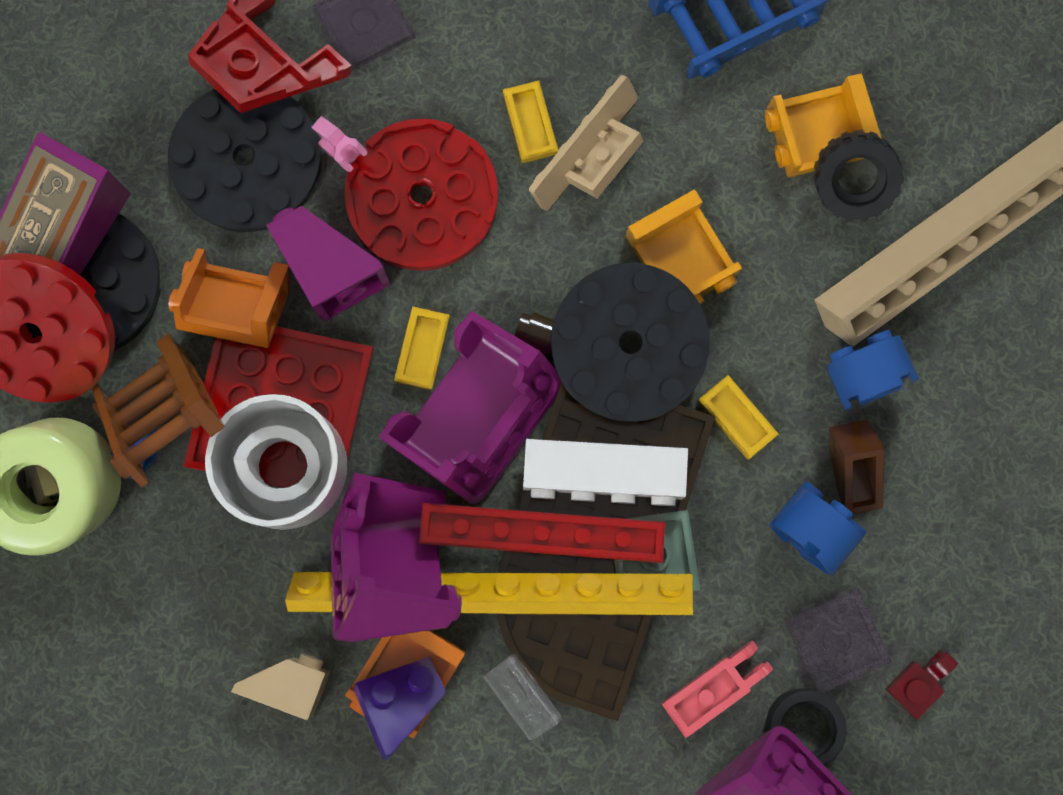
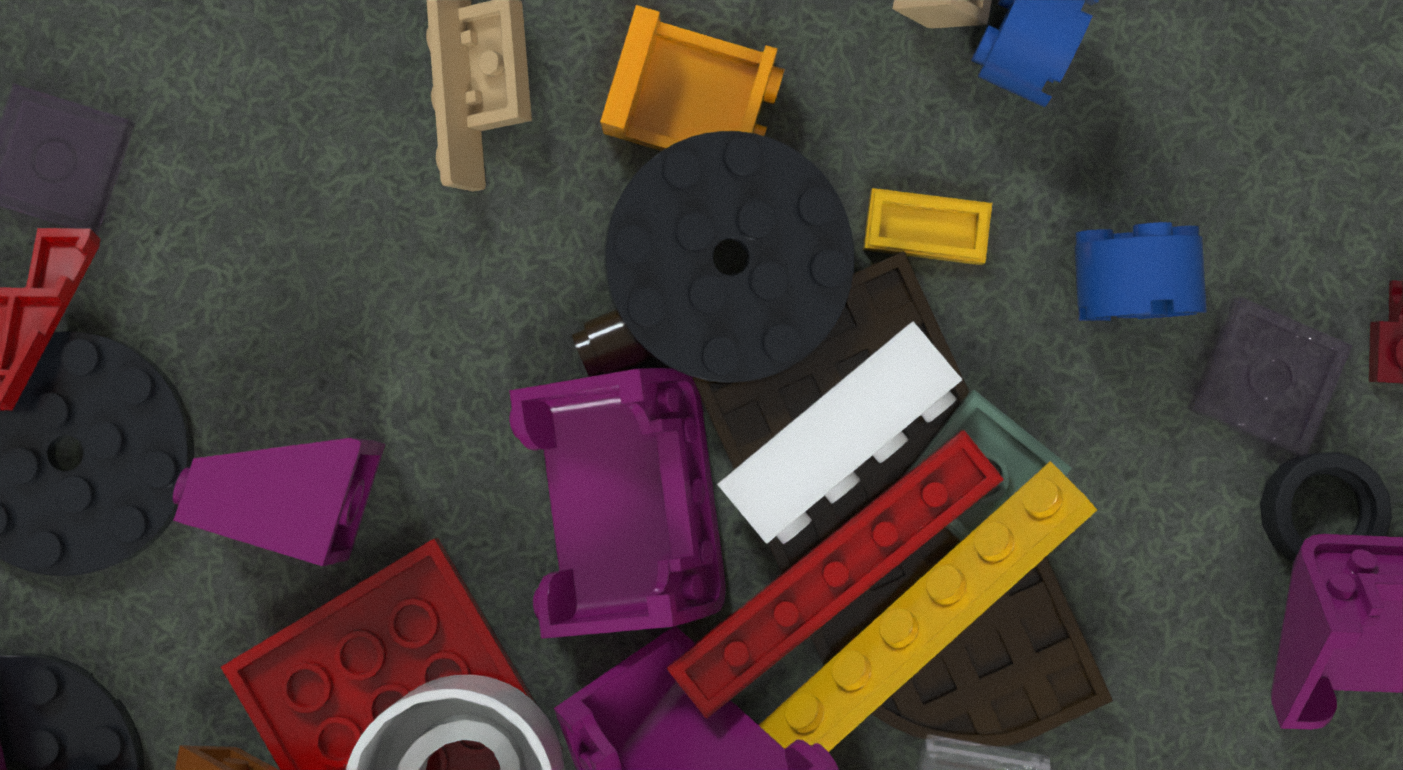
camera: 40 degrees left, 5 degrees up
(229, 301) = (215, 643): orange panel -> none
(337, 144) = (167, 339): bright pink plate -> none
(414, 156) = (257, 295): red plate -> none
(422, 348) = (492, 484): yellow tile -> none
(530, 121) = (366, 99): yellow tile -> none
(713, 691) = (1186, 563): coral hinge -> none
(857, 465) = (1115, 157): reddish brown slope -> none

